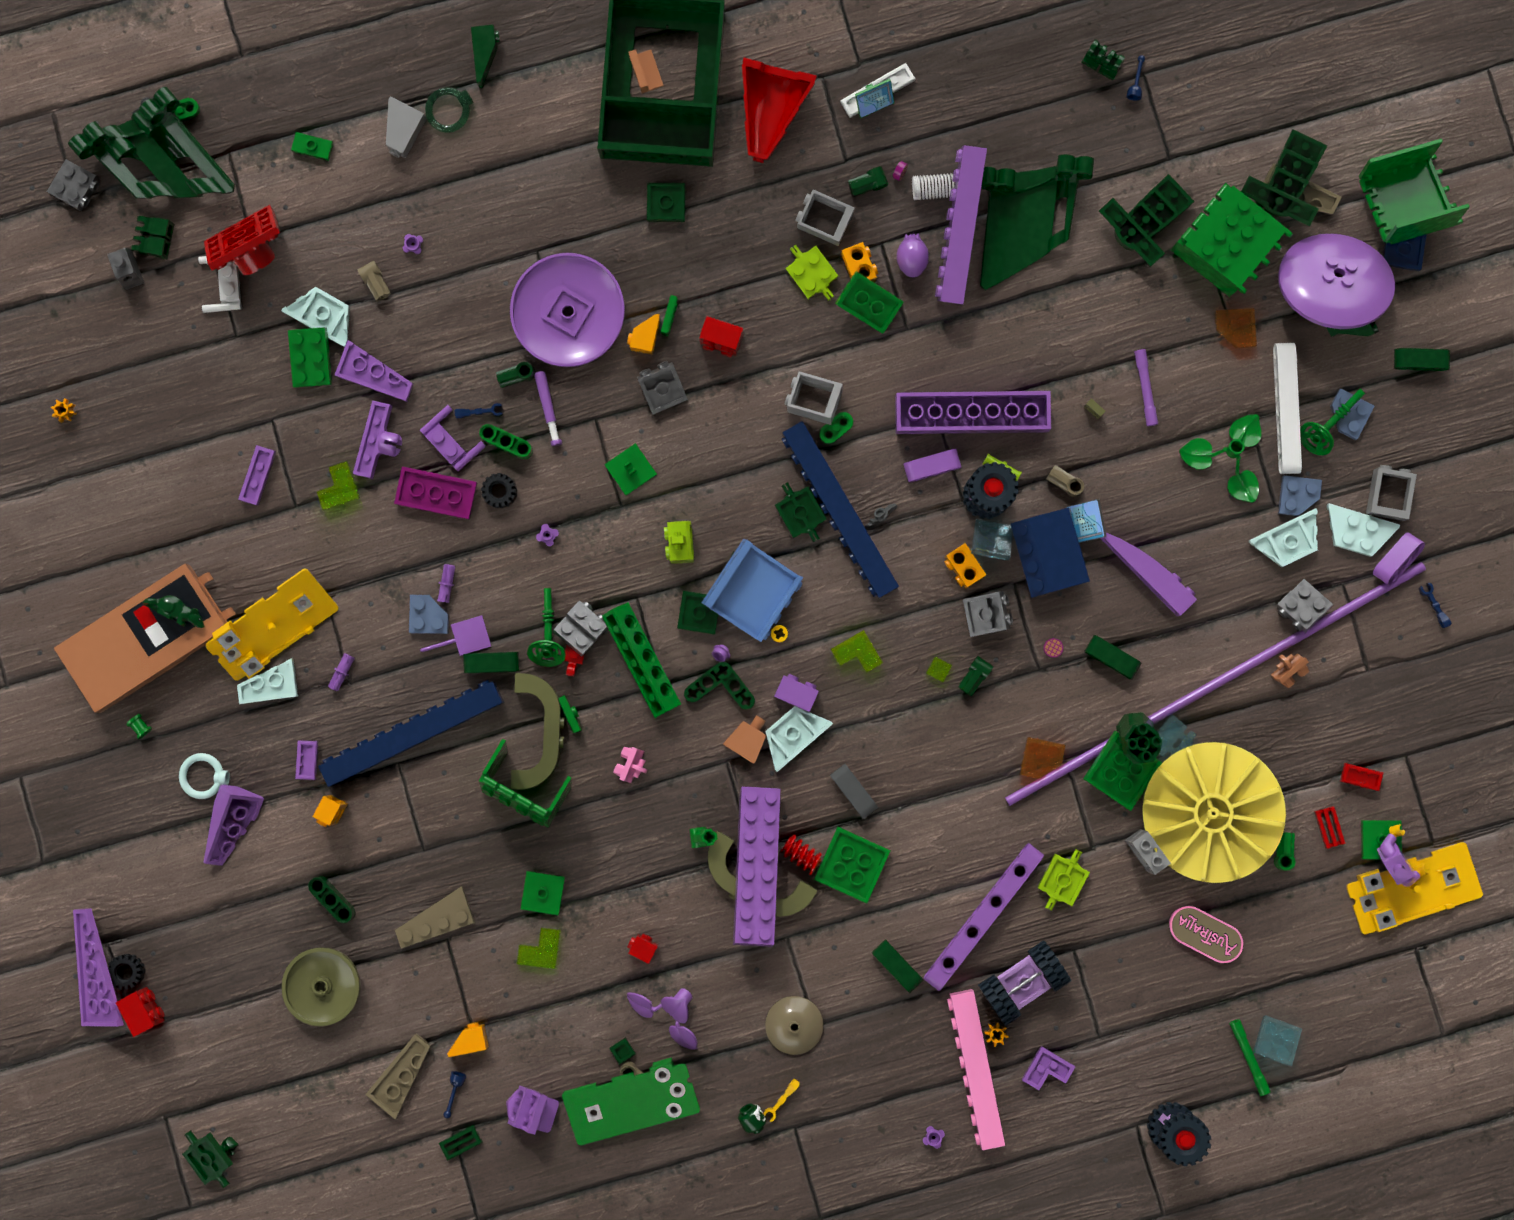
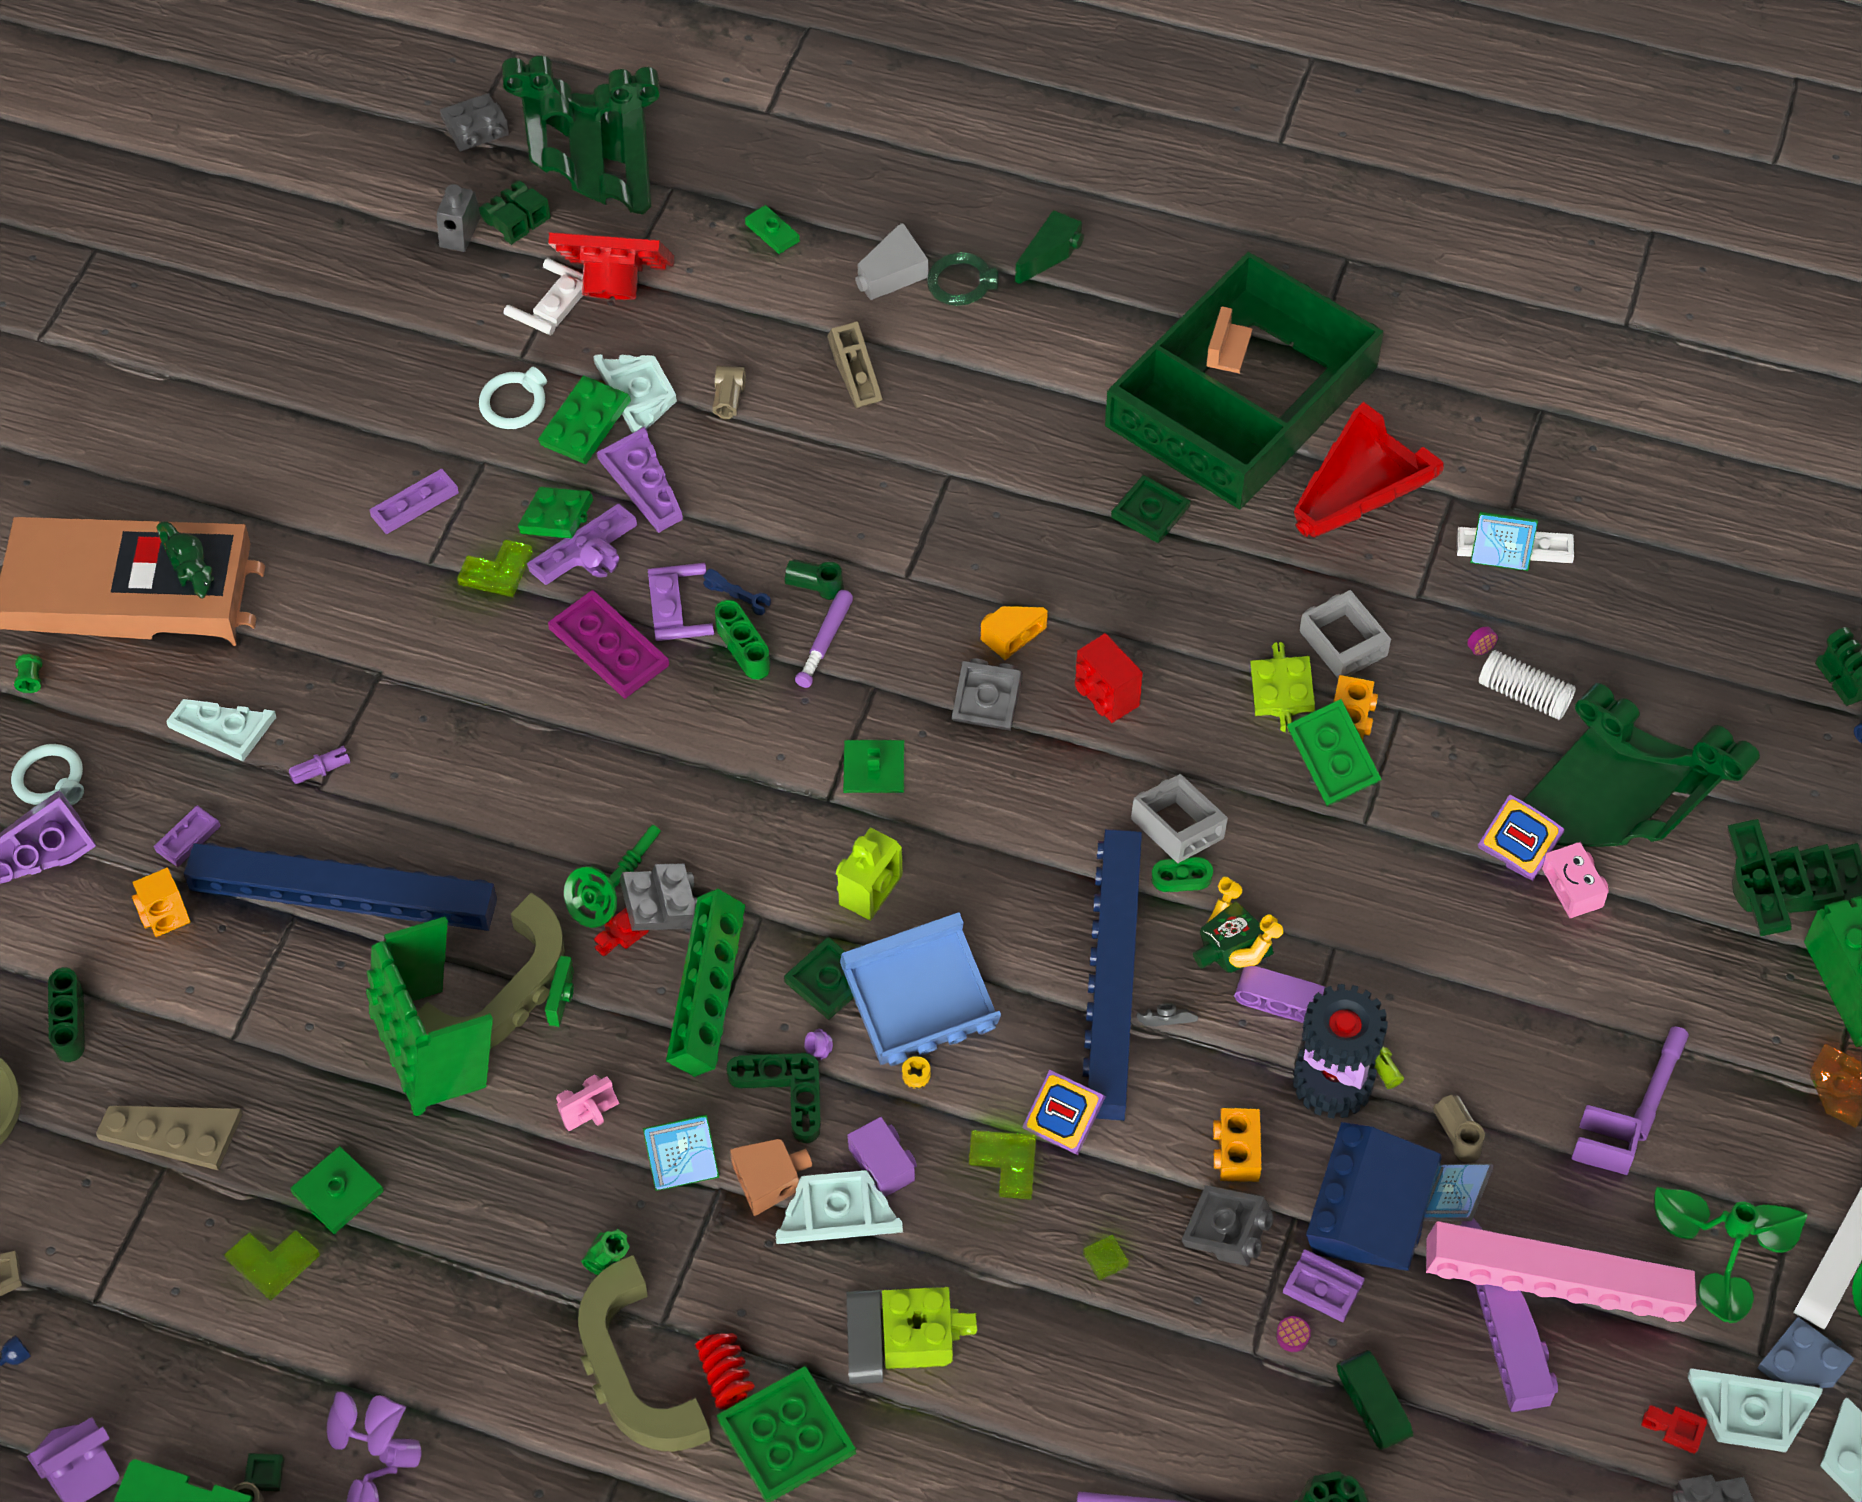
camera: 30 degrees right, 30 degrees down
(63, 405) = (259, 311): light orange gear -> none
(182, 110) = (661, 119): green plate -> none
(258, 350) = (532, 381): none -> light aqua piece
(271, 625) = (285, 656): yellow piece -> none
(342, 430) = (556, 512): none -> green plate
(412, 239) = (805, 381): medium lavender plate -> none
(427, 616) = (478, 771): sand blue plate -> none
(433, 215) = (854, 364): none -> dark tan slope
(446, 583) = (534, 747): medium lavender axle -> none
(468, 635) = (510, 826): medium lavender piece -> none
(470, 1040) = (75, 1309): light orange slope -> none
(491, 662) = (511, 868): dark green beam -> none
(499, 479) = (687, 673): black tyre -> none
(553, 533) = (706, 779): medium lavender plate -> none
(560, 283) = (930, 511): medium lavender dish -> none
(642, 947) = (407, 1347): red brick -> none
(669, 316) = (1059, 625): green tile -> none
(698, 760) = (681, 1152): none -> piece
(756, 866) = (646, 1334): medium lavender brick -> none
(800, 512) = (1058, 943): dark green plate -> none
(869, 609) = (1063, 1112): none -> slope
(872, 180) = (1439, 631): dark green piece -> none
(888, 450) = (1234, 935): none -> torso
(889, 773) = (939, 1327): none -> lime hinge
(912, 256) = (1430, 736): medium lavender helmet -> none
(961, 225) = (1520, 726): medium lavender brick -> none
(973, 412) = (1388, 962): medium lavender brick -> none
(977, 673) = (1160, 1293): dark green piece -> none
(992, 539) = (1300, 1132): clear light blue plate -> none
(996, 288) = (1521, 837): none -> slope
(1038, 294) = (1575, 880): none -> bright pink brick
(1040, 757) = (1170, 1469): clear orange plate -> none
(1052, 613) = (1323, 1285): none -> medium lavender plate
(1096, 410) = (1564, 1062): olive tile -> none
(1155, 436) = (1611, 1125): none -> medium lavender piece
(1163, 535) = (1560, 1272): none -> bright pink brick
(1261, 573) = (1680, 1427): none -> red plate

